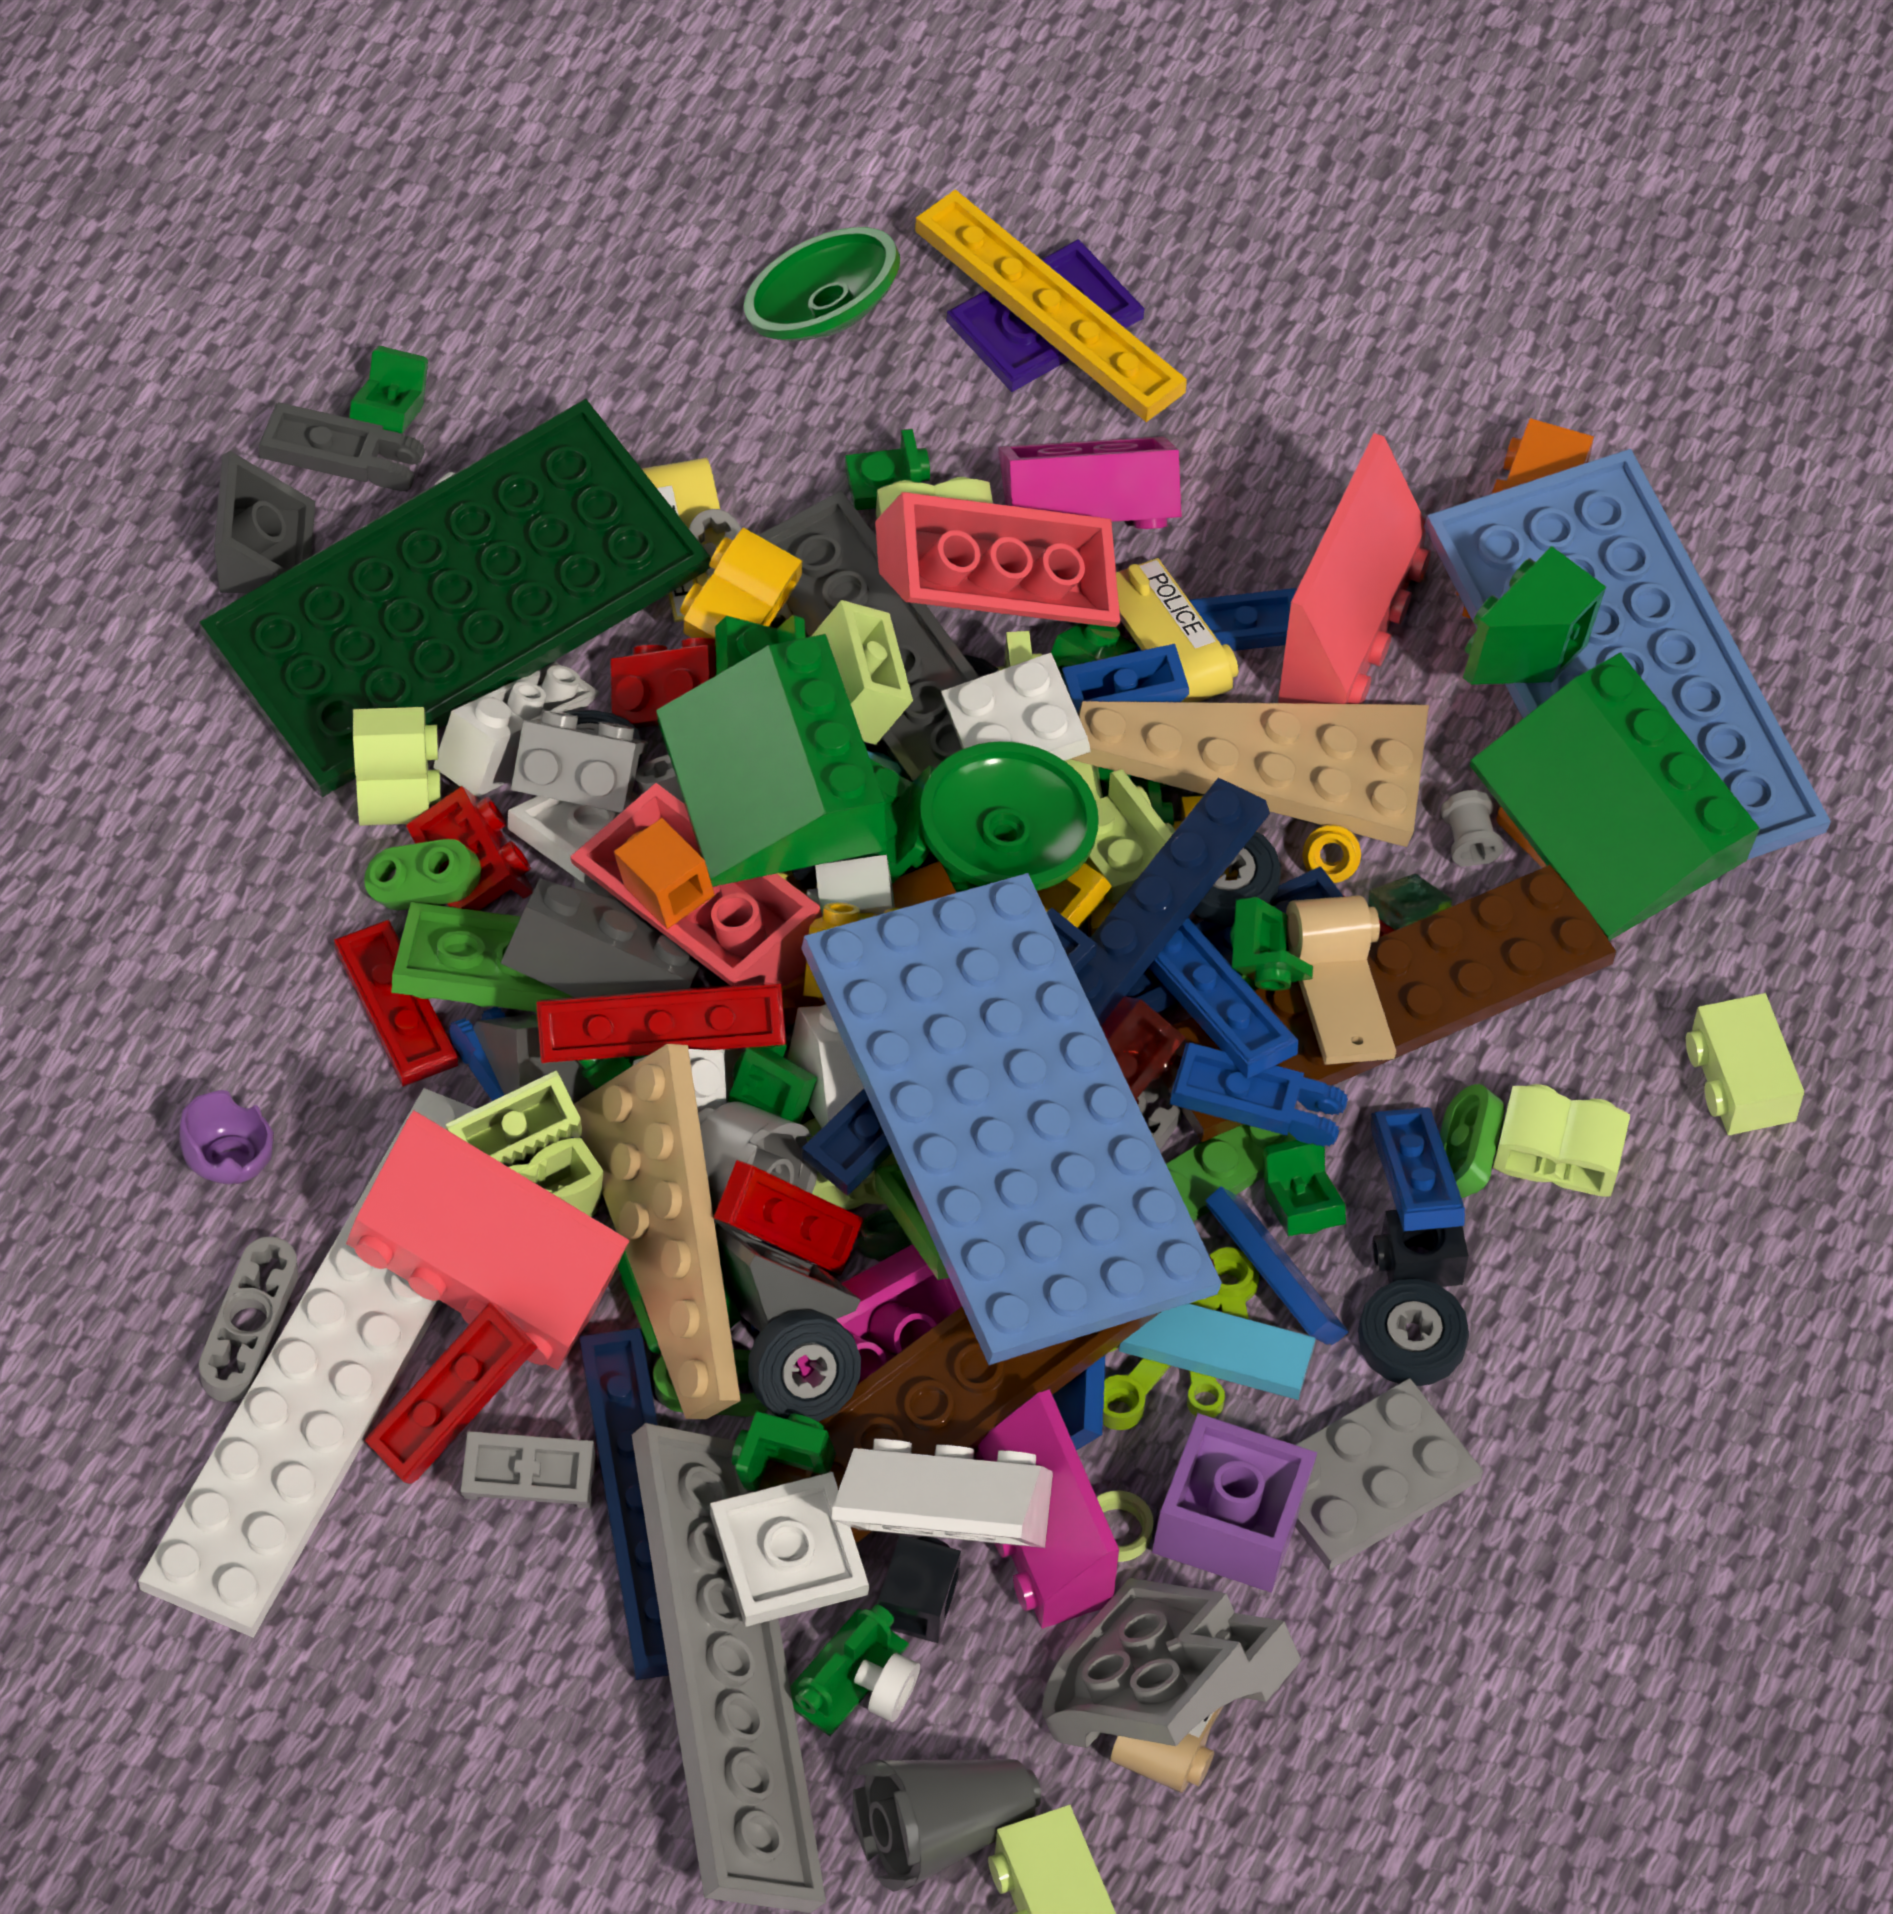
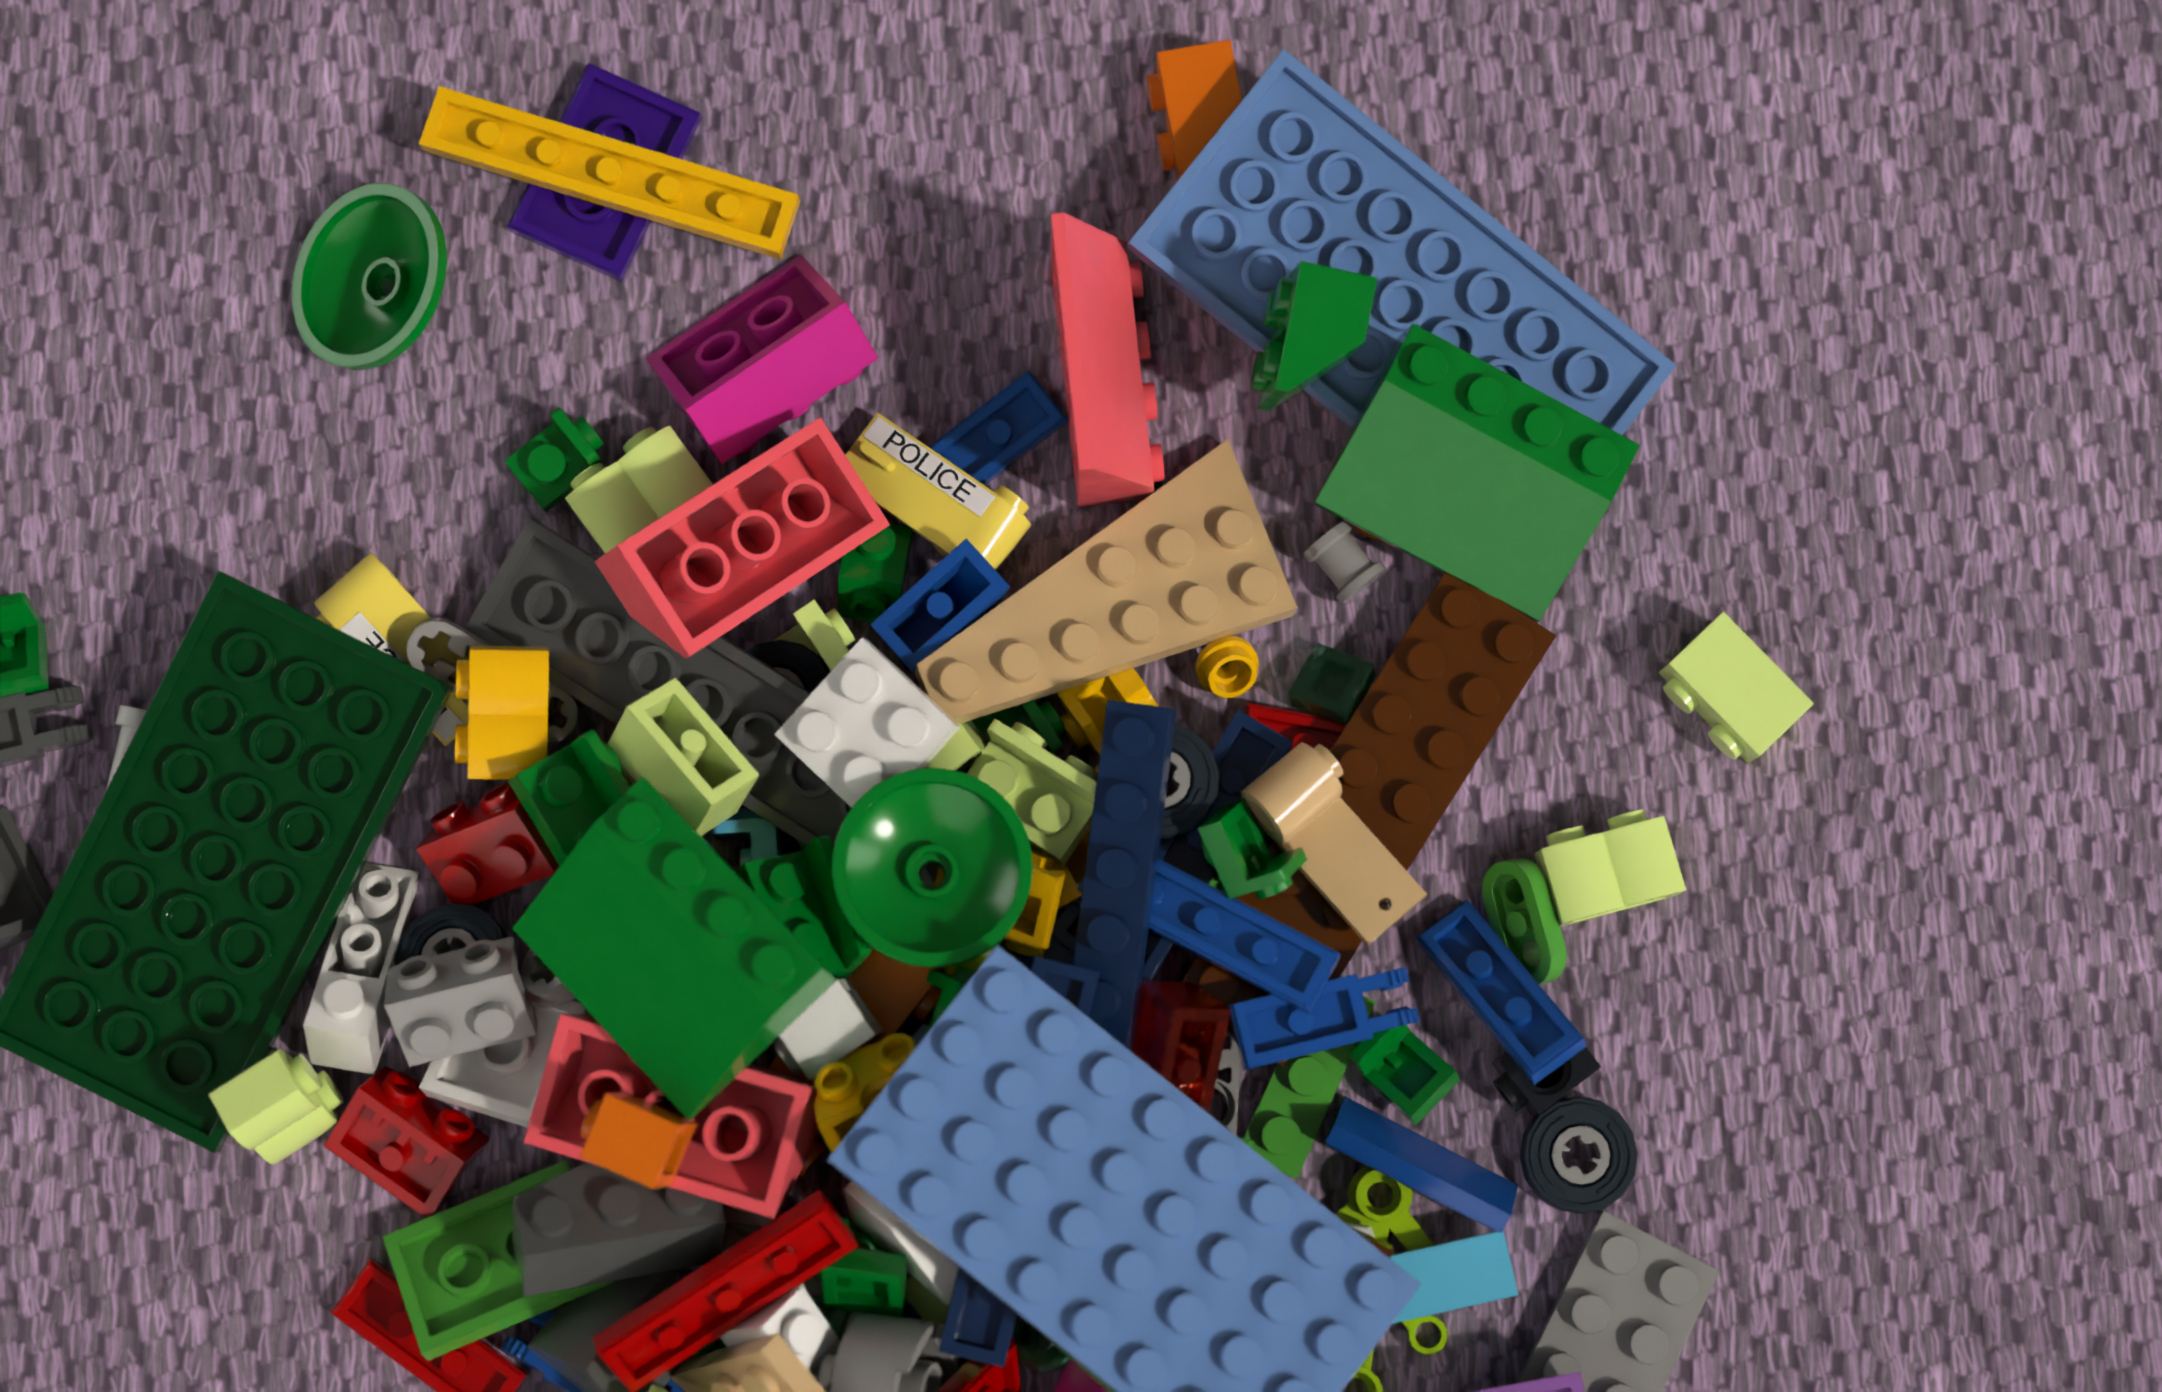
camera: 30 degrees left, 25 degrees up
(418, 874) = (370, 1200): bright green plate -> none

